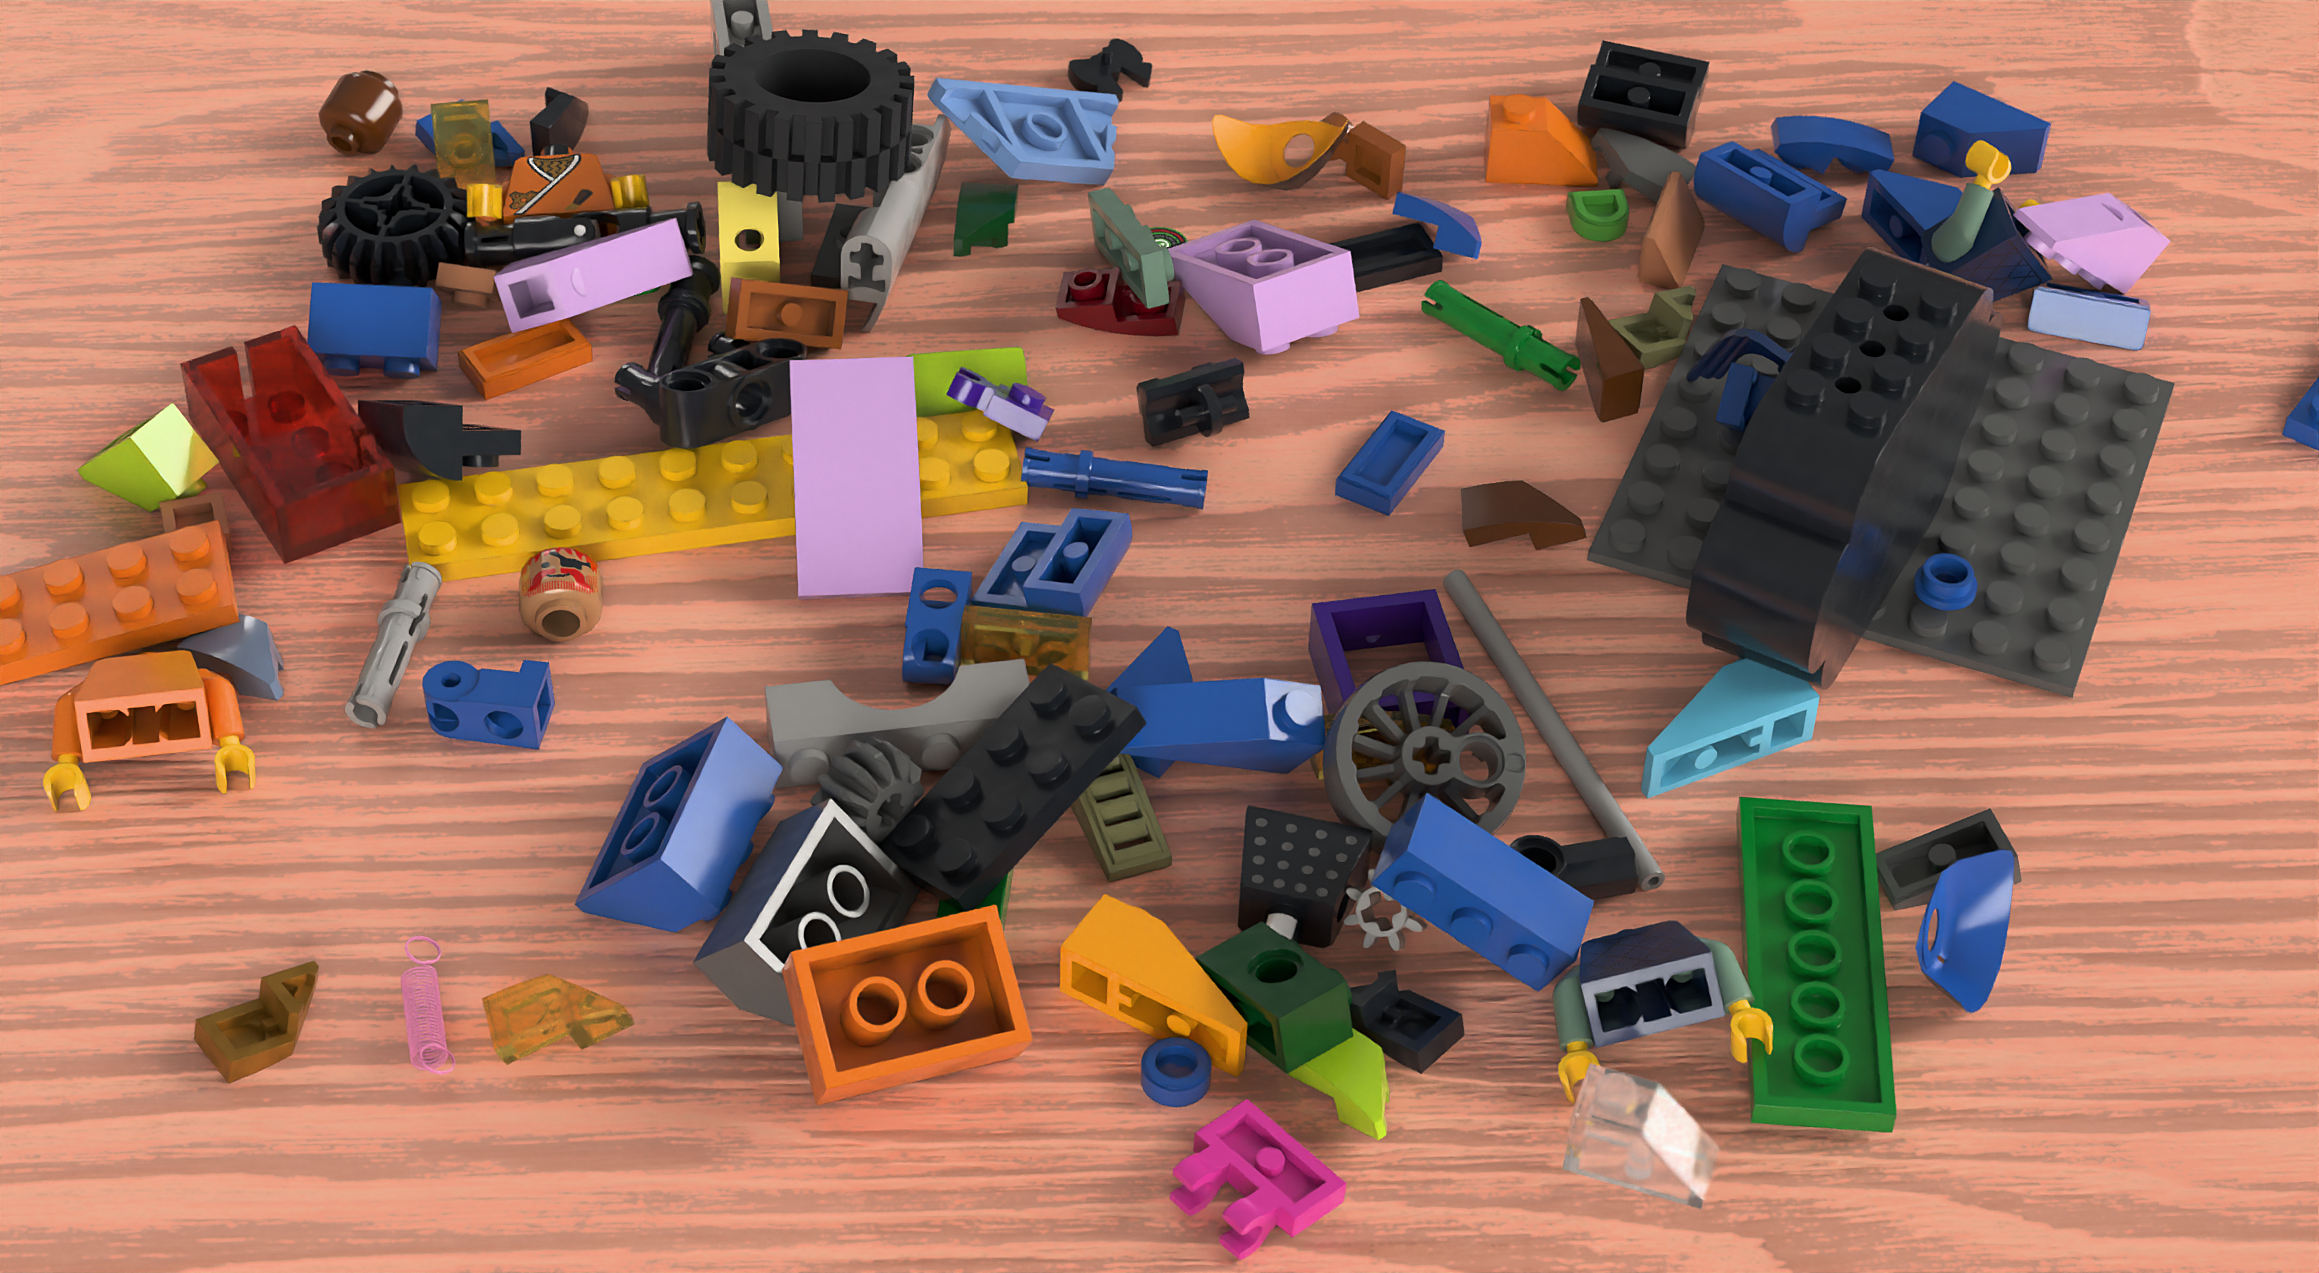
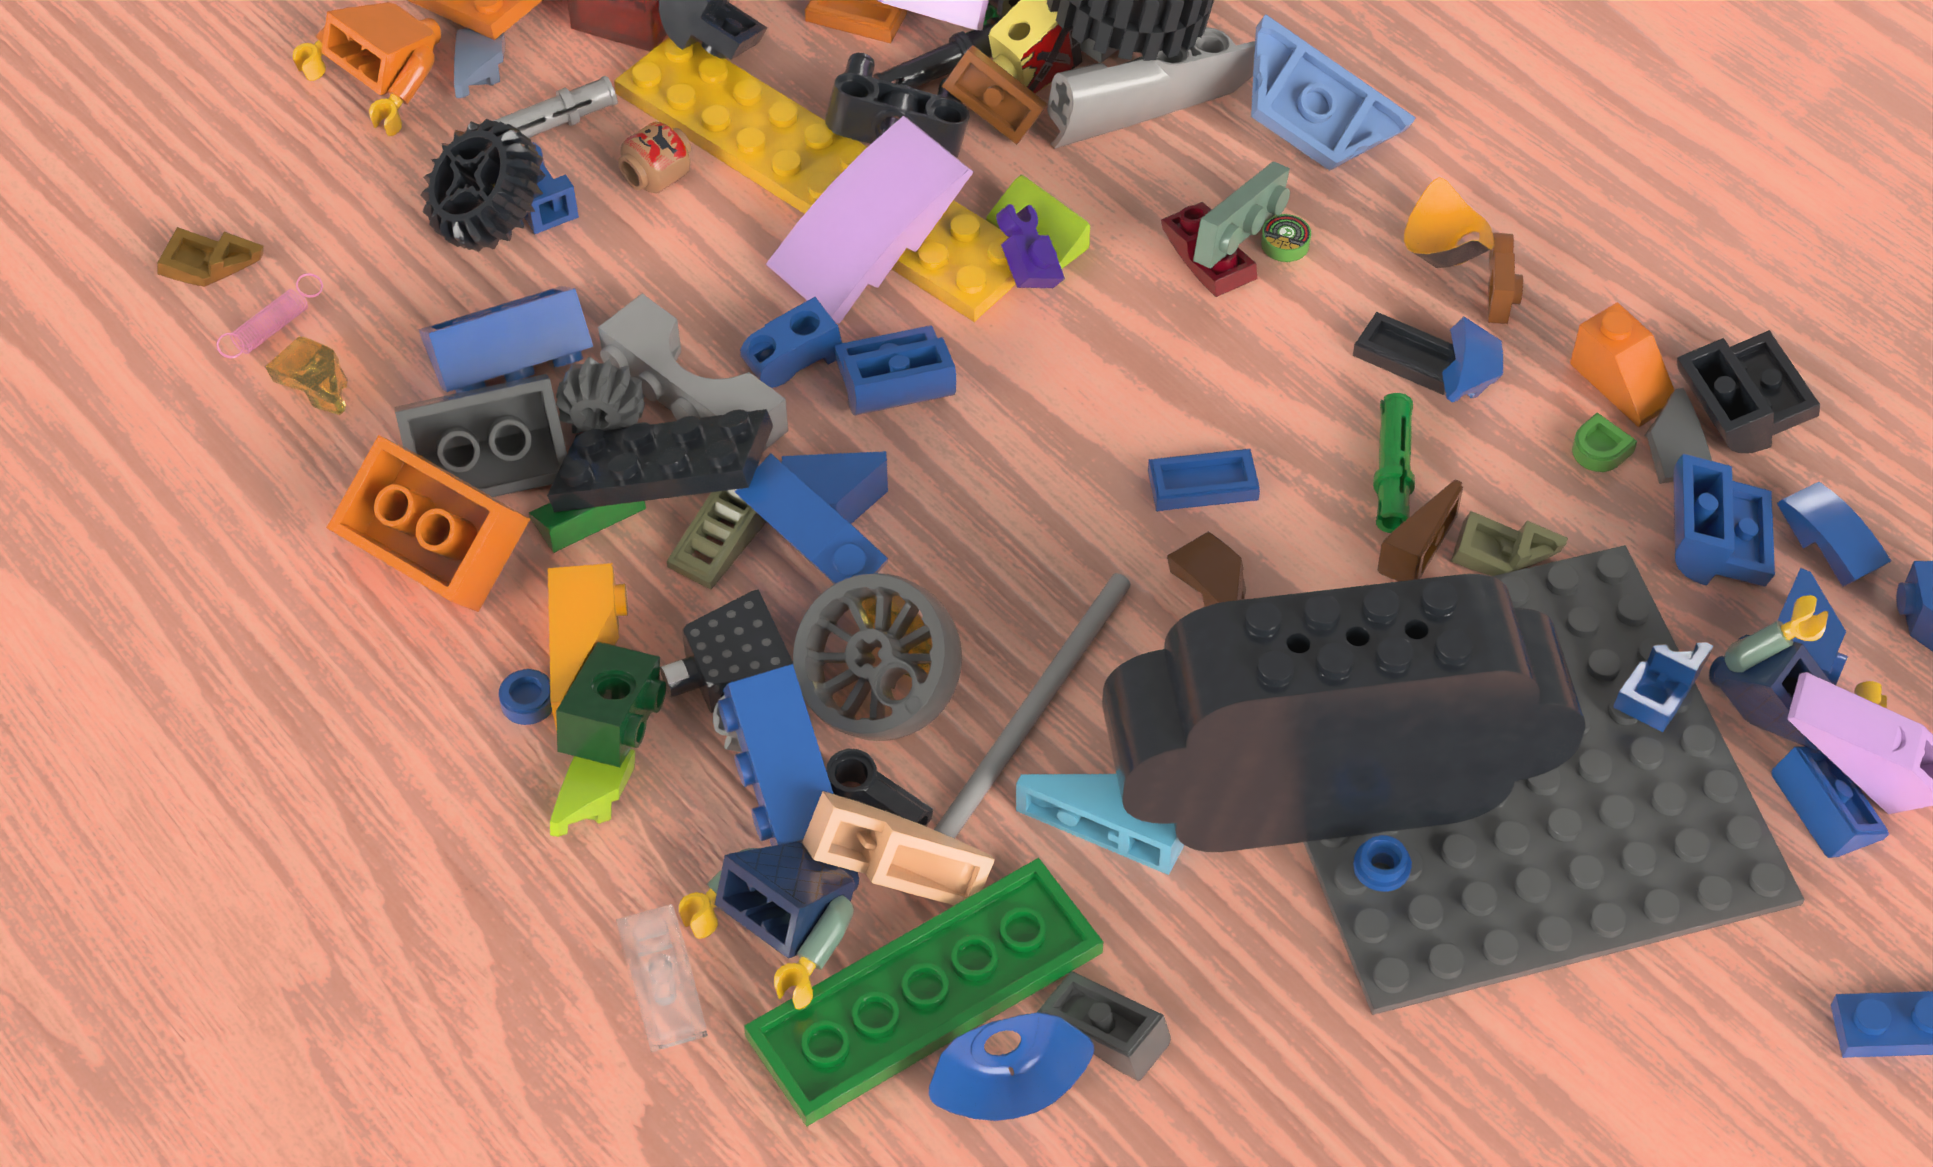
camera: 55 degrees right, 10 degrees up
(468, 697) = (482, 185): none -> black gear
(984, 216) = (1220, 125): dark green slope -> none
(1033, 636) = (828, 403): clear yellow plate -> none
(1103, 70) = (1448, 96): black piece -> none
(1114, 478) = (1017, 332): blue pin -> none
(1193, 402) = (1140, 340): black hips -> none
(1267, 1166) = (472, 792): dark pink plate -> none
(1268, 284) = (1297, 306): lavender slope -> none
(1379, 623) = (999, 542): dark purple window -> none
(1403, 1022) = (669, 786): black slope -> none
(1653, 882) = (895, 851): none -> light nougat slope
(1671, 236) = (1616, 495): nougat slope -> none

